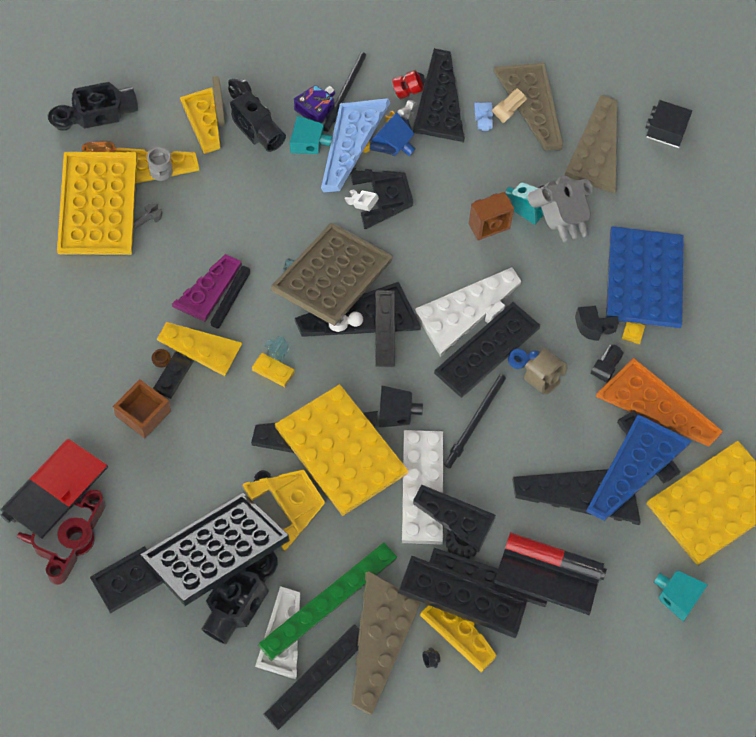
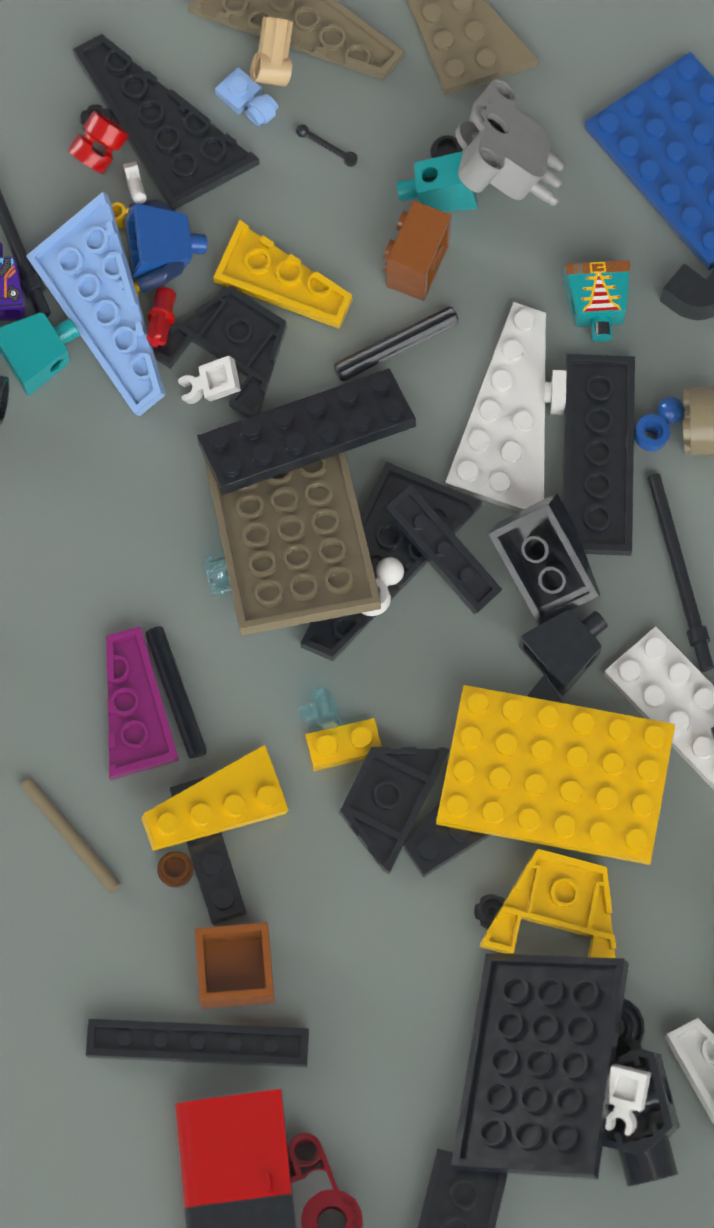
camera: 40 degrees left, 10 degrees up
(100, 426) = (197, 1043): none -> black plate
(137, 313) = (70, 835): none -> dark tan bar
(232, 587) = (627, 1092): none -> white plate
(268, 402) = (389, 798): none -> black wing
(366, 162) = (161, 316): none -> red axle
(378, 245) = (306, 431): none -> black plate
(423, 365) = (545, 558): none -> black slope
(425, 180) = (281, 279): none -> yellow wing
(449, 245) = (396, 343): none -> black axle
(502, 168) = (350, 158): none -> black hinge
(550, 291) = (597, 295): none -> torso

